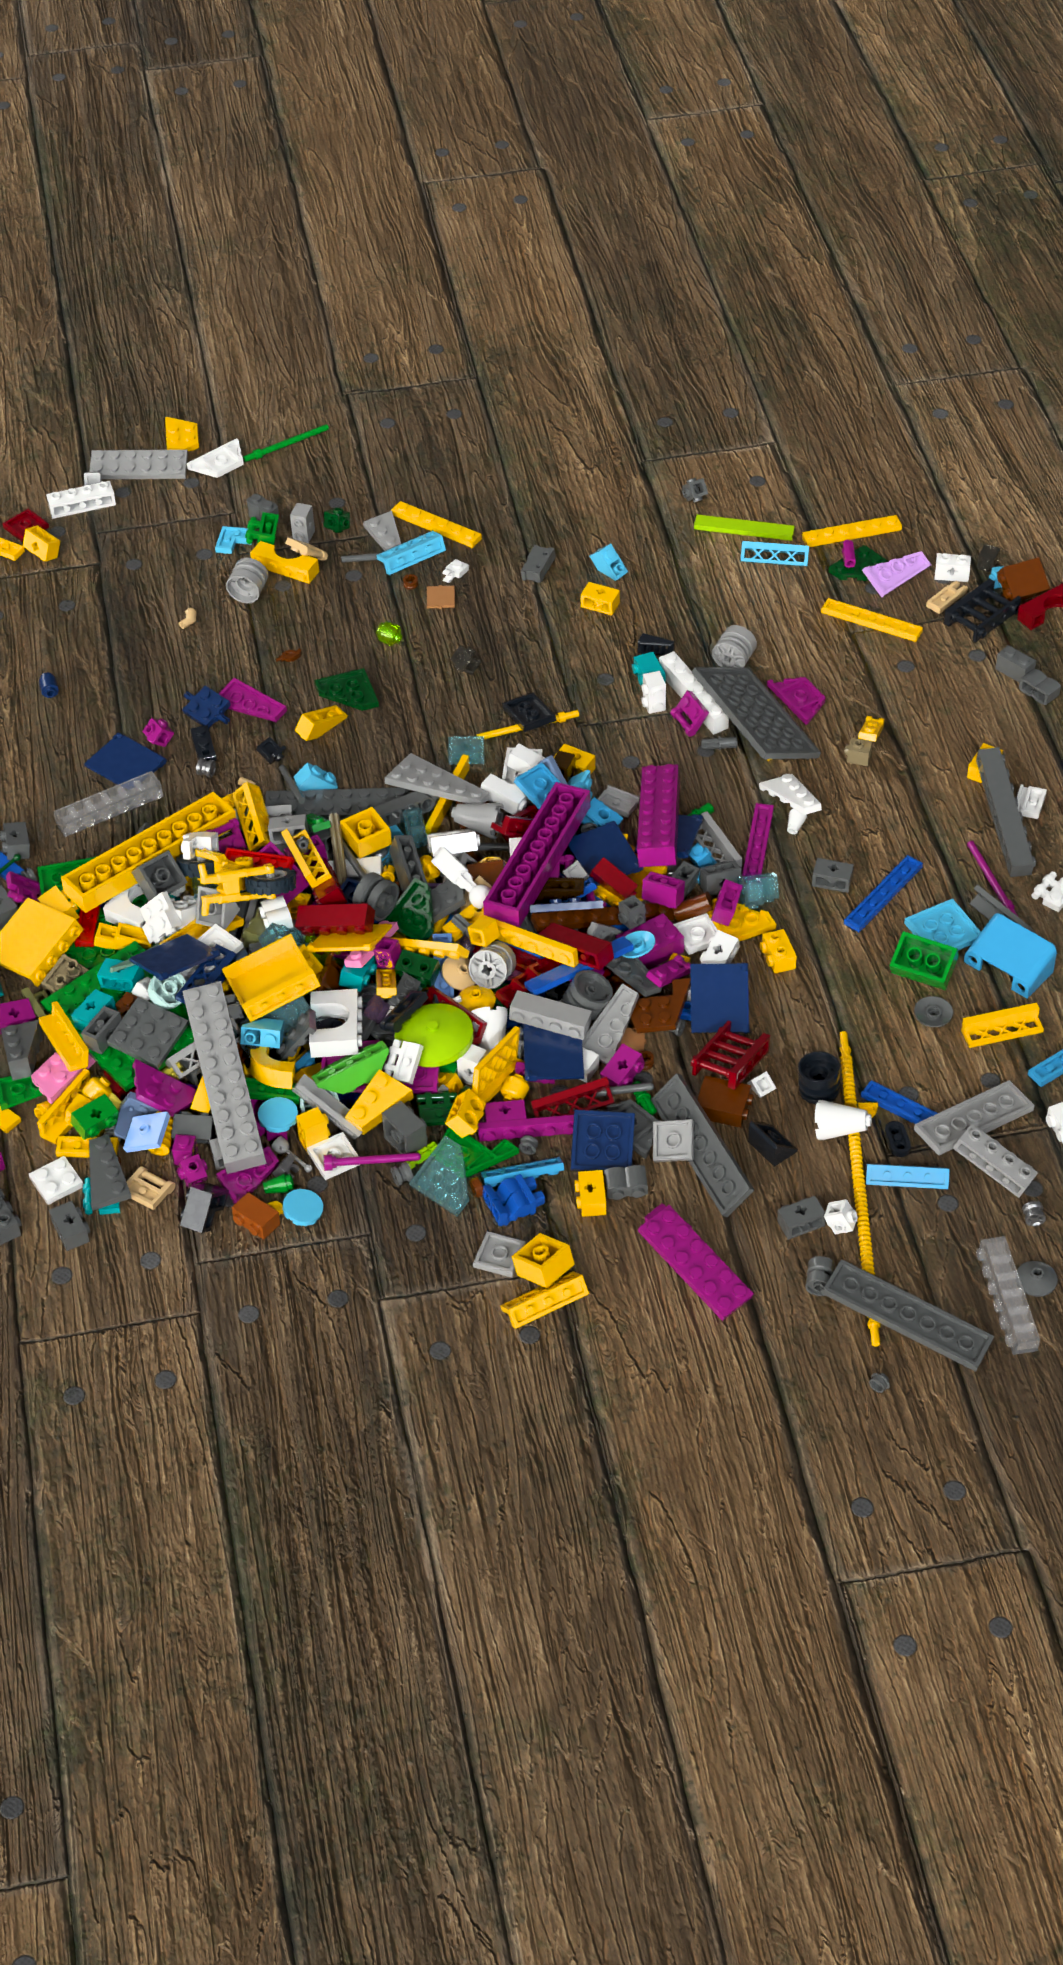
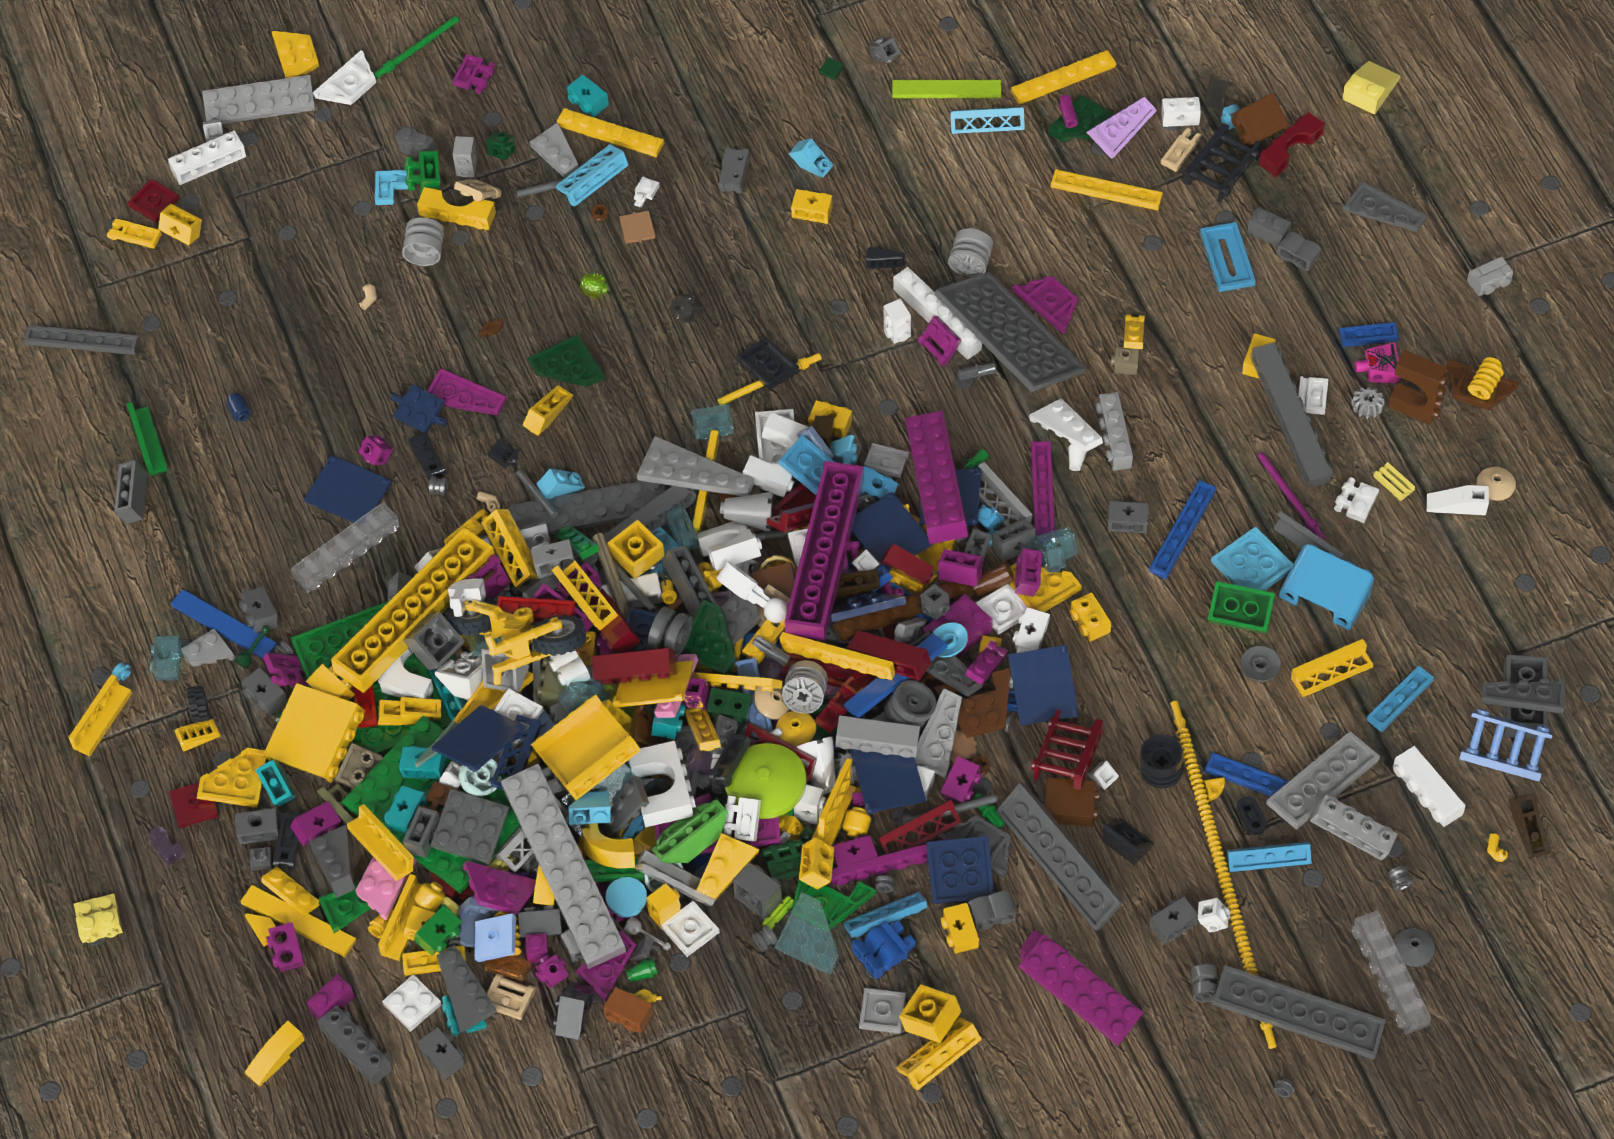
camera: 10 degrees left, 10 degrees up
(154, 1162) = (509, 967): none -> clear orange plate
(160, 918) = (446, 689): white plate -> none
(302, 844) = (578, 582): dark grey arm -> none
(302, 1207) = (673, 992): medium azure tile -> none
(325, 466) = (468, 73): none -> magenta plate
(332, 1162) = (692, 939): magenta piece -> none
(423, 494) = (587, 96): none -> teal brick
(476, 1187) = (843, 940): reddish brown tile -> none
(483, 931) = (791, 655): yellow brick -> none
(644, 500) = (831, 68): none -> dark green tile
(646, 664) = (882, 290): teal brick -> none
(673, 1140) = (1030, 856): light grey tile -> none
(835, 805) = (1115, 431): none -> light grey brick
(839, 1120) = (1192, 807): white cone -> none
(982, 682) = (1230, 233): none -> dark azure piece

